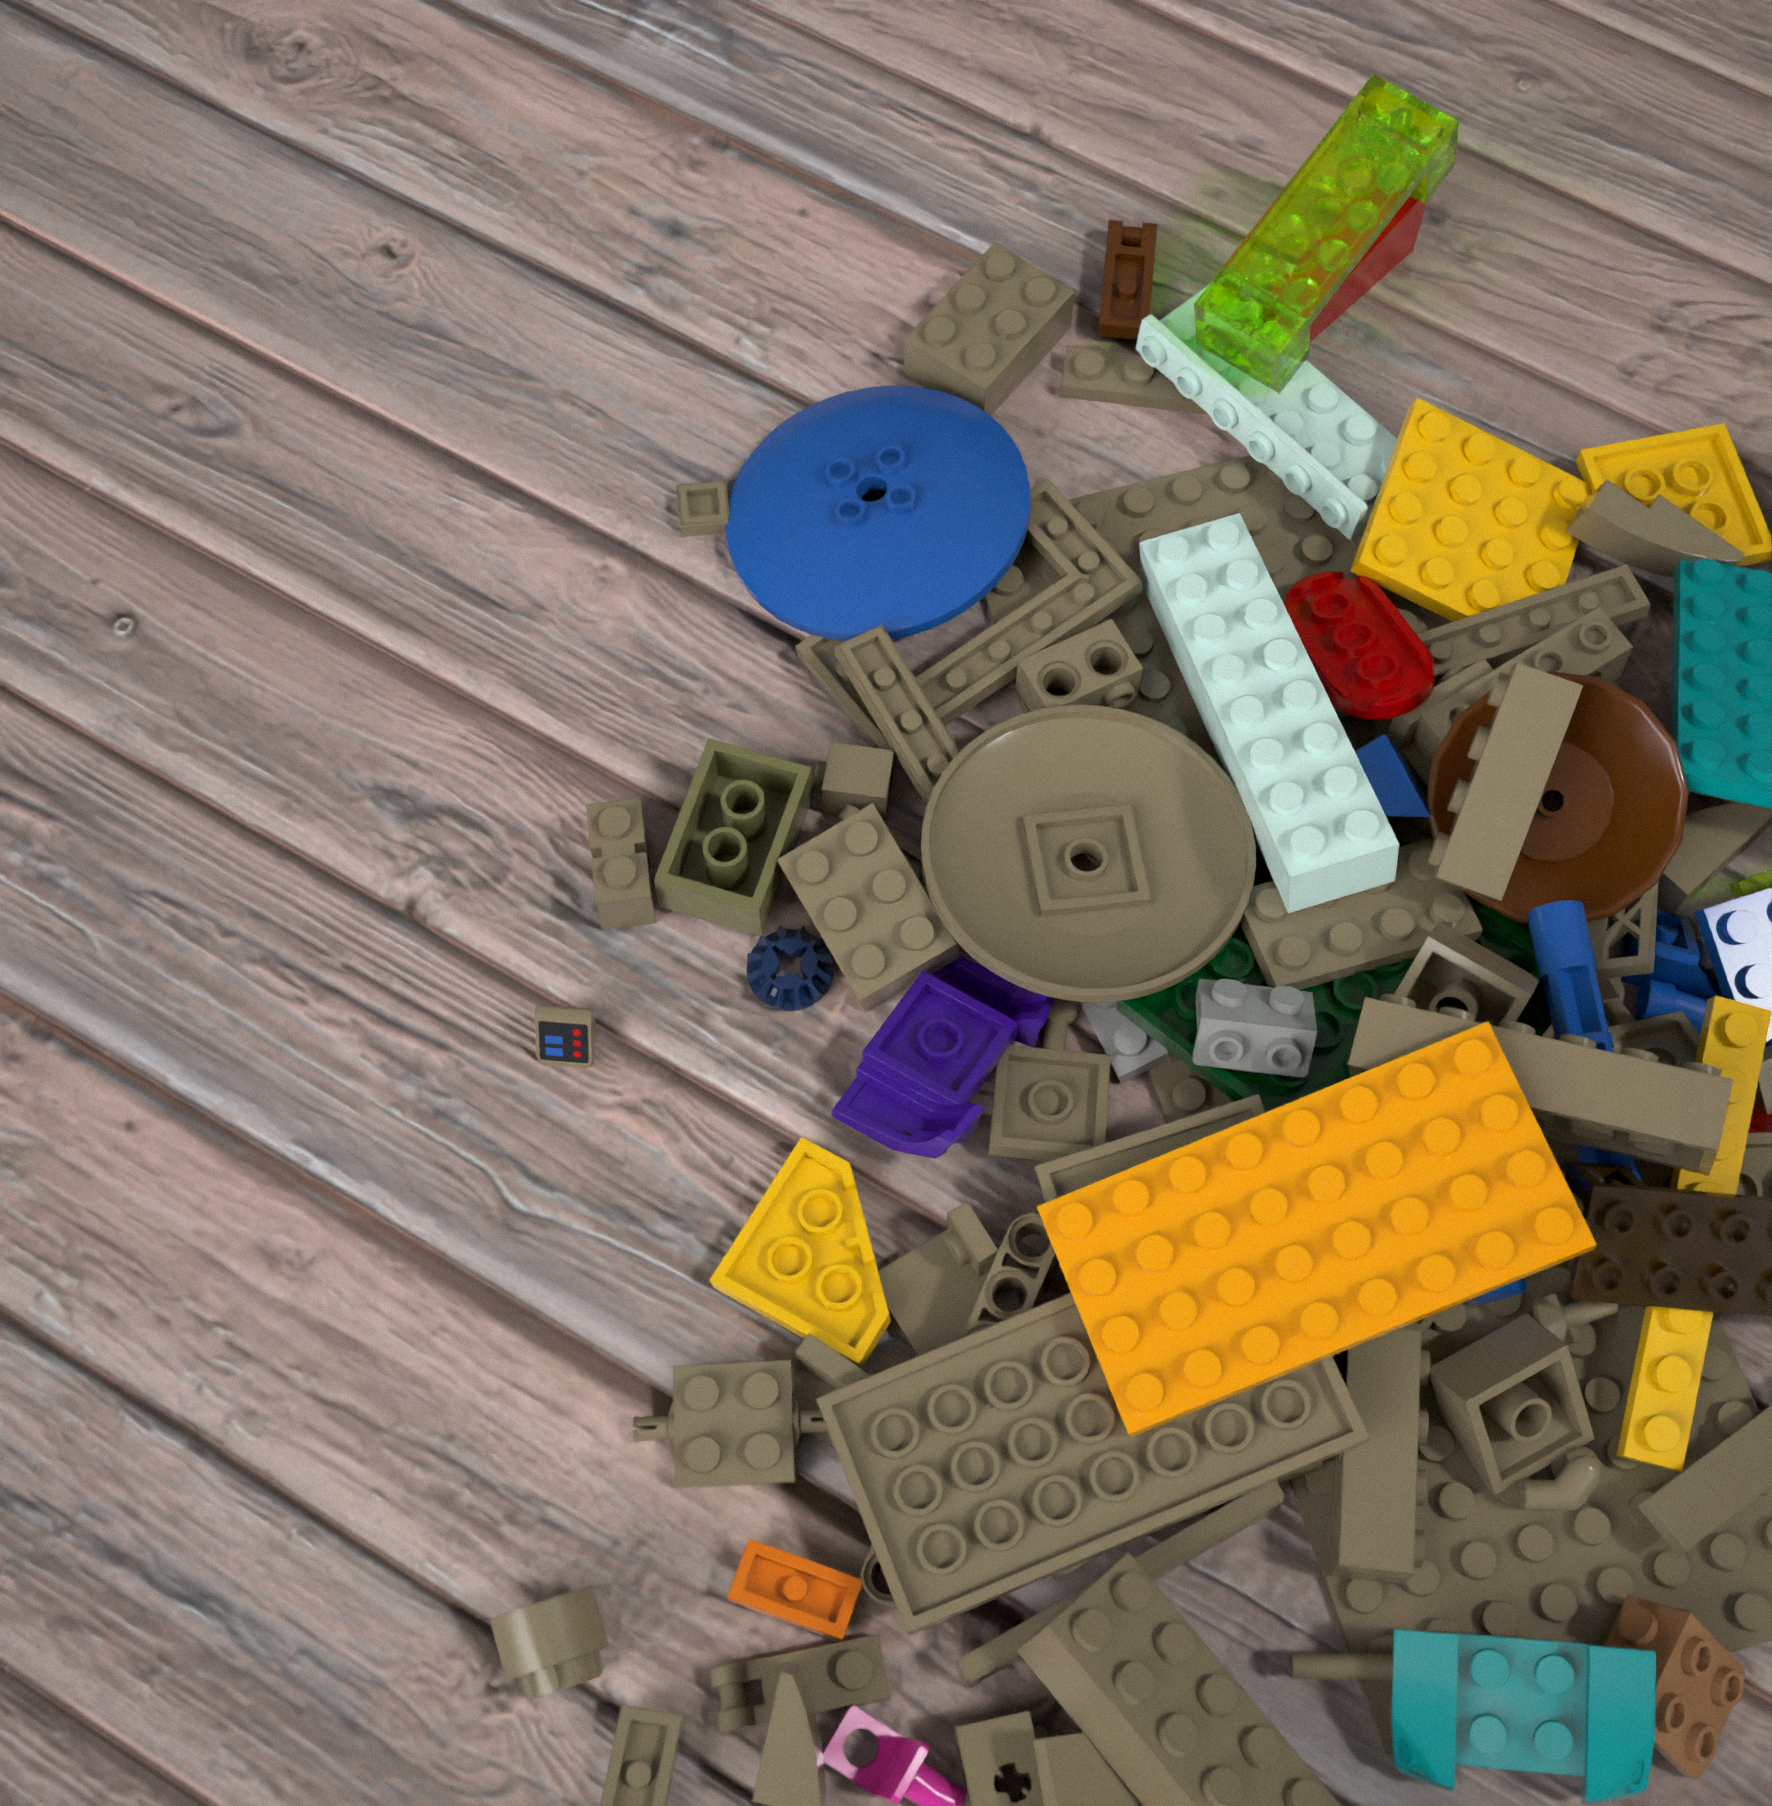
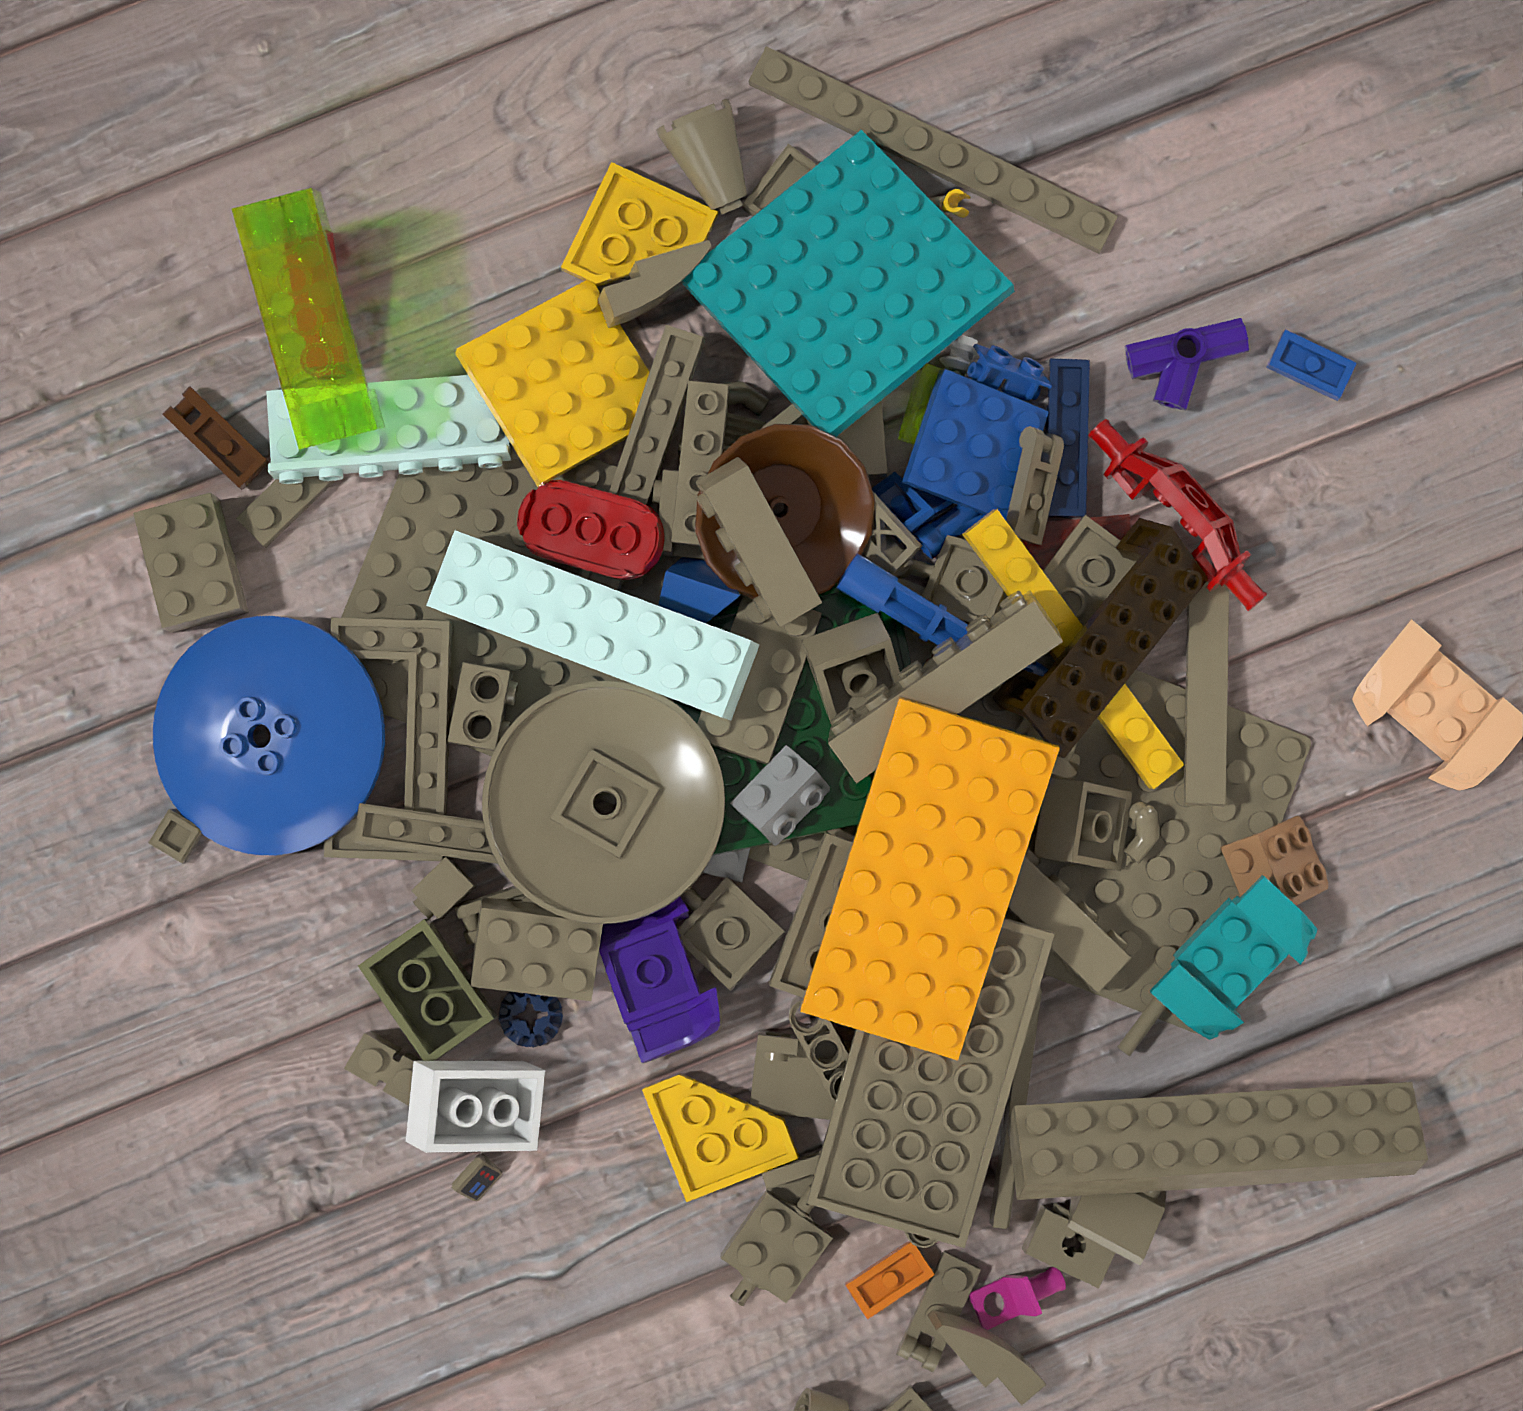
camera: 55 degrees left, 20 degrees up
(648, 959) = (475, 1106): none -> white brick

